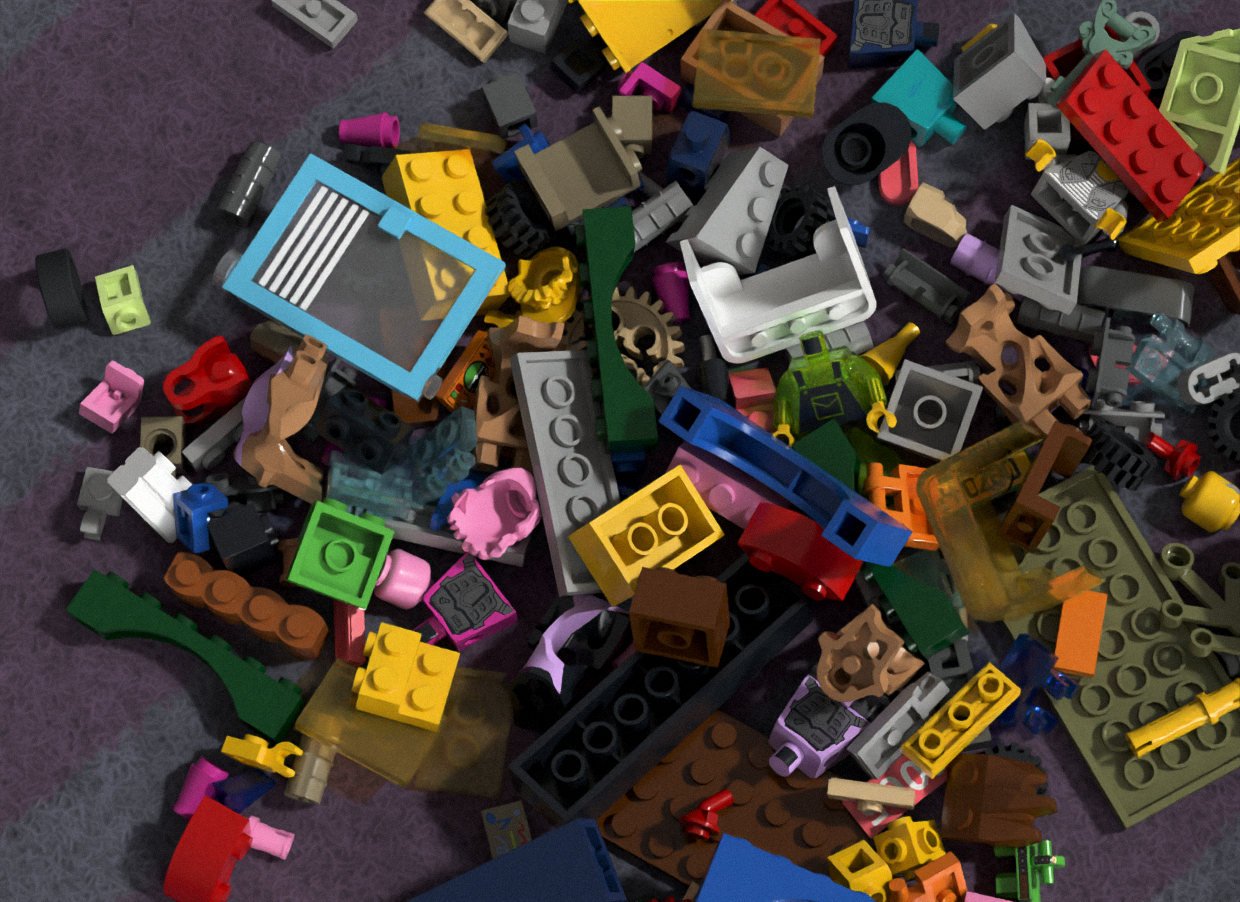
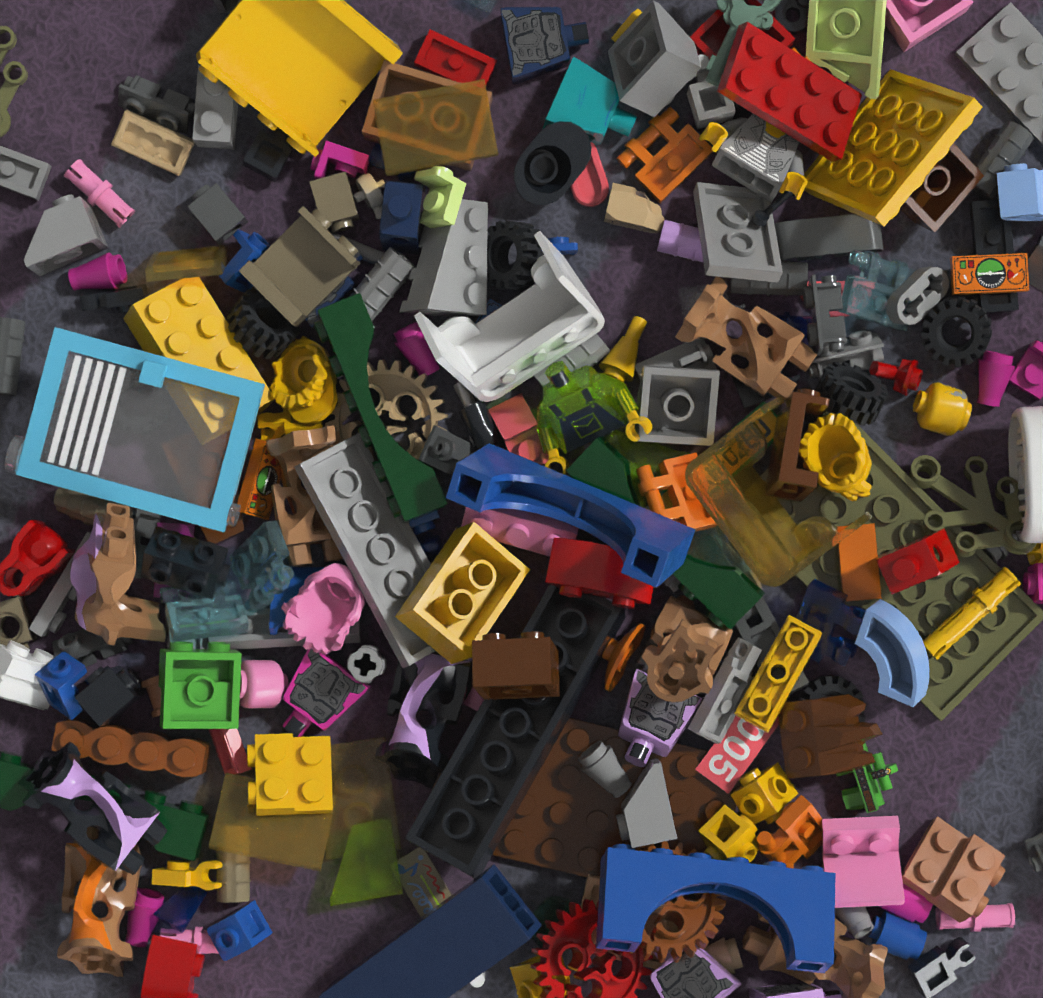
camera: 20 degrees left, 15 degrees up
(160, 721) = (95, 941): none -> medium nougat hips
(206, 664) = (62, 779): none -> black hips
(298, 830) = (239, 931): none -> blue bracket
(347, 82) = (64, 236): none -> light grey slope
(396, 56) = (99, 192): none -> bright pink pin
(458, 801) = (368, 864): none -> clear neon green wing
(522, 585) = (358, 670): none -> light grey axle
(669, 125) = (370, 192): none -> white piece
(702, 821) = (581, 825): red plate -> none
(744, 142) = (443, 198): none -> yellowish green bracket
(744, 769) = (604, 768): none -> light grey cone
(778, 815) = (647, 809): none -> light grey slope
(795, 657) = (618, 654): none -> orange dish
(871, 796) = (720, 762): tan plate -> none
(926, 286) = (632, 275): dark grey hinge -> none
(990, 183) = (673, 162): none -> orange plate
(1088, 508) = (838, 455): none -> yellow hair
(1096, 731) = (896, 651): none -> light blue brick
(1140, 639) = (916, 561): none -> red torso

